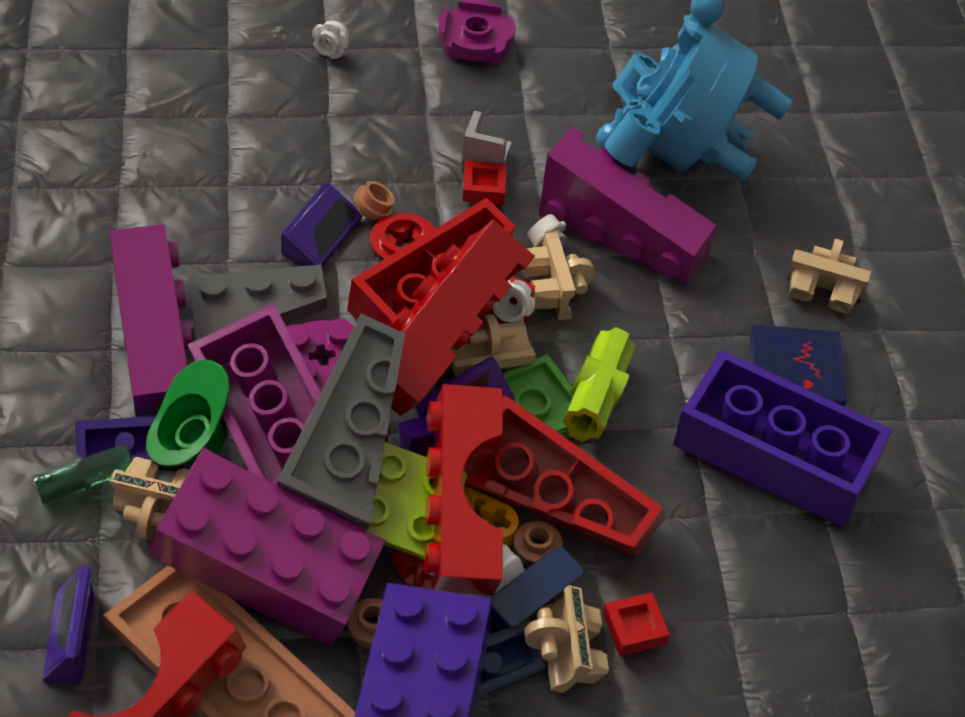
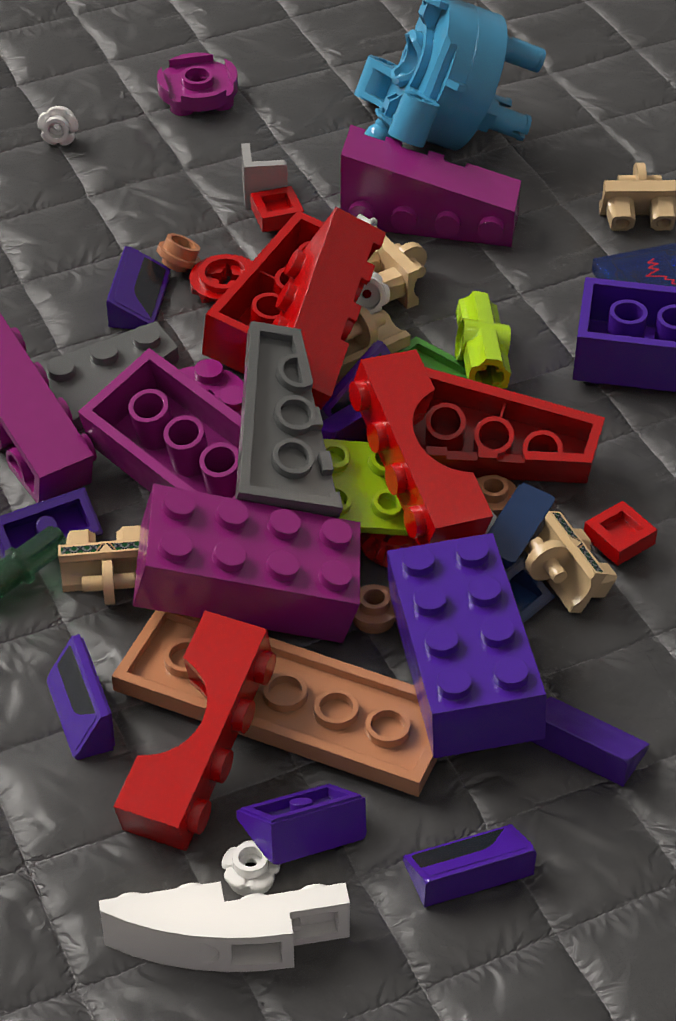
camera: 15 degrees left, 5 degrees down
(190, 416) = (110, 475): green piece -> none

